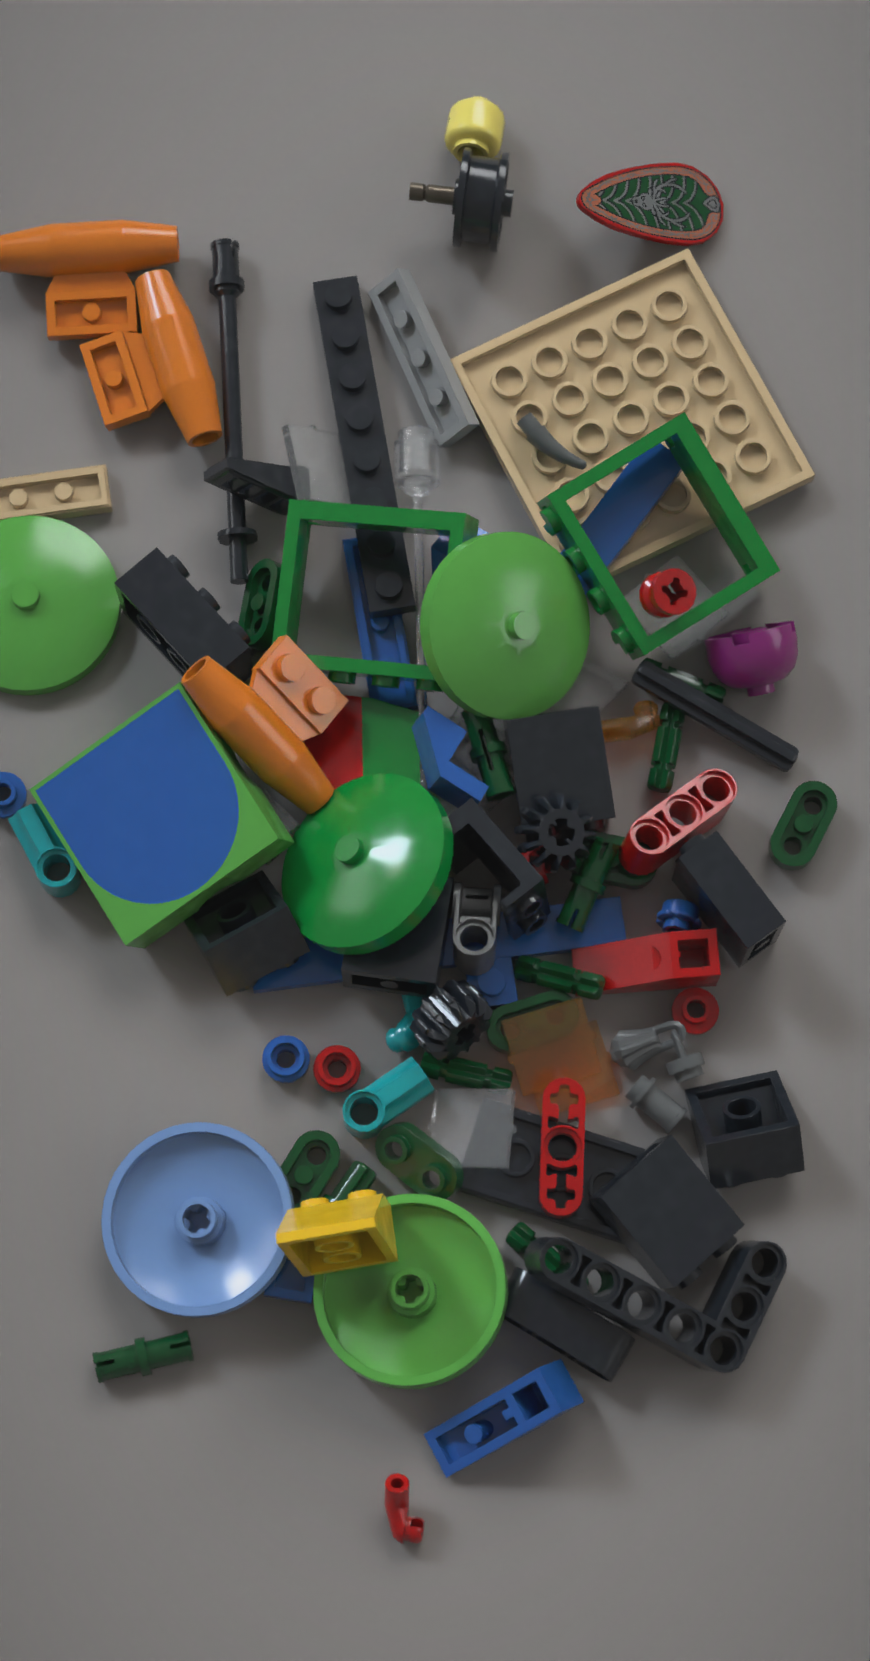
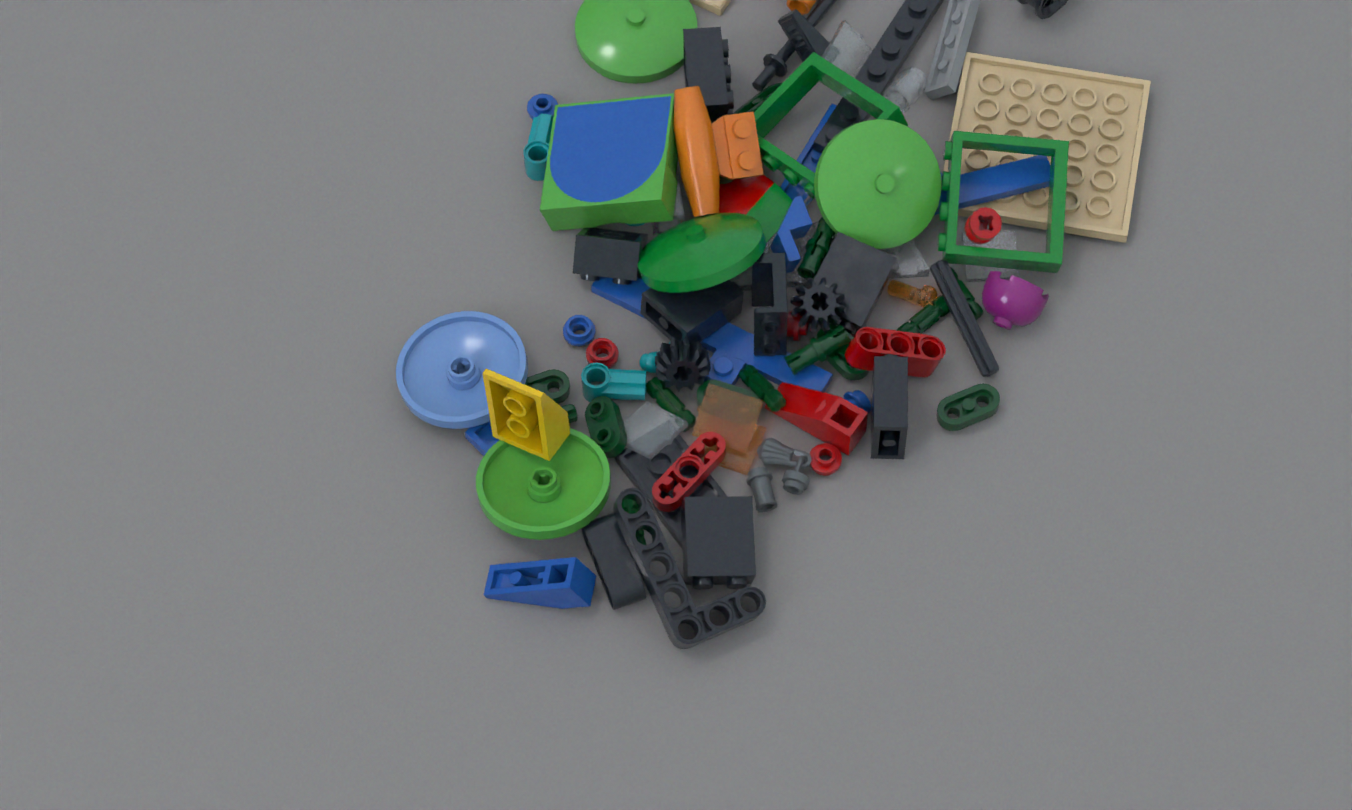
camera: 40 degrees right, 15 degrees down
(143, 1356) = (376, 421): dark green pin -> none
(397, 1509) = (439, 599): red arm -> none
(475, 919) = (733, 330): dark grey piece -> none
(546, 443) = (983, 116): dark grey helmet -> none
(656, 203) = (1150, 47): shield -> none
(745, 1130) = (799, 536): black slope -> none

